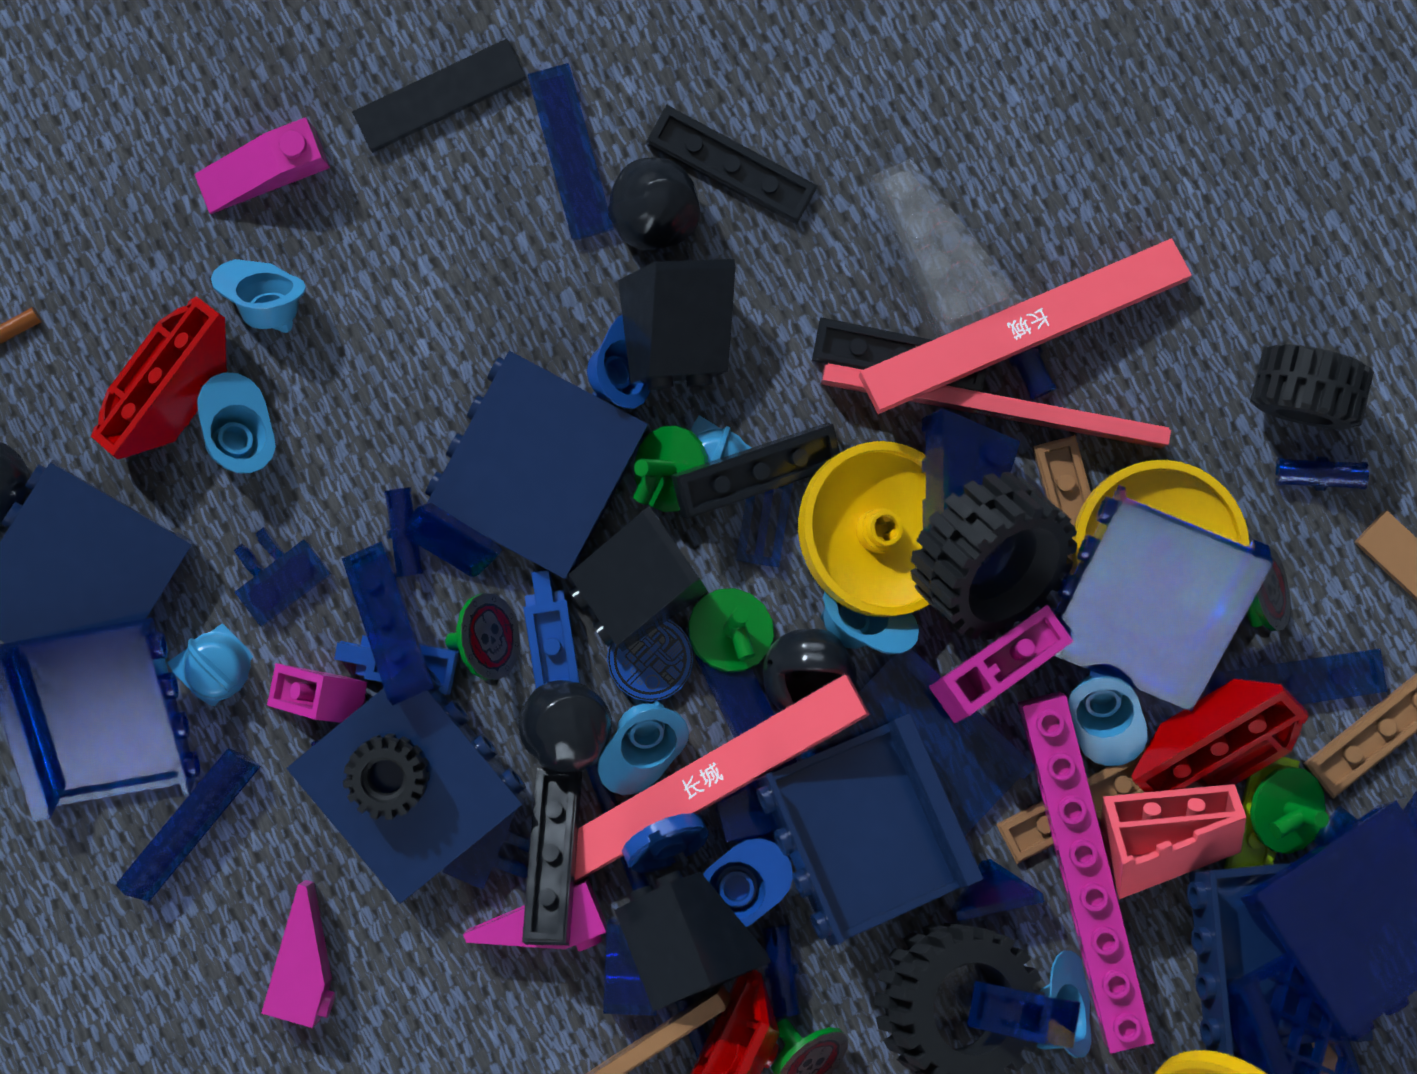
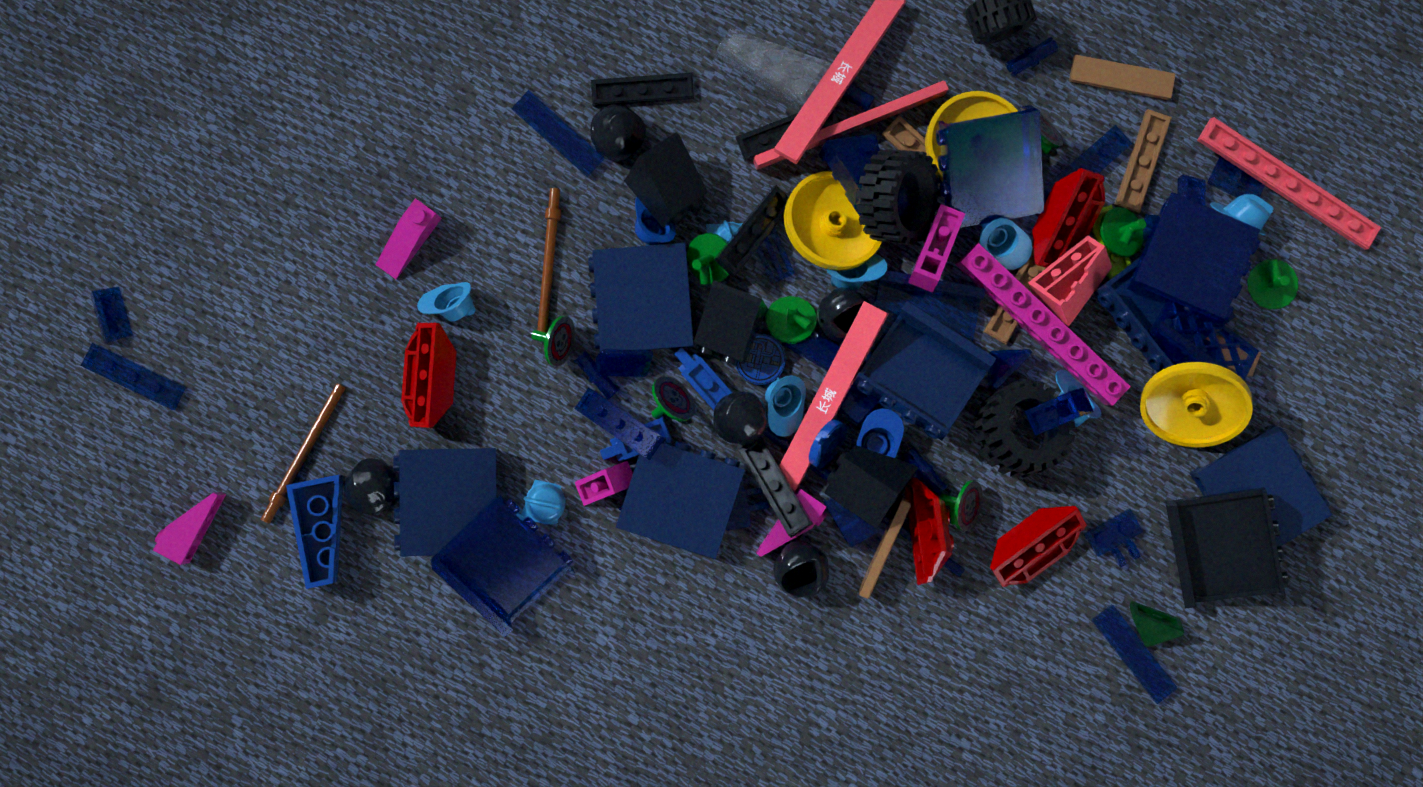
camera: 40 degrees left, 0 degrees up
(188, 825) = (583, 589): clear blue tile -> none
(235, 423) = (478, 374): dark azure piece -> none
(280, 582) = (551, 440): clear blue hinge -> none
(302, 968) = (687, 625): dark pink slope -> none
(370, 798) = (669, 514): black tyre -> none
(377, 448) = (557, 341): none -> shield
(439, 95) = (473, 147): black tile -> none
(488, 263) = (552, 215): none -> dark orange bar
(512, 998) = (801, 569): none -> black piece

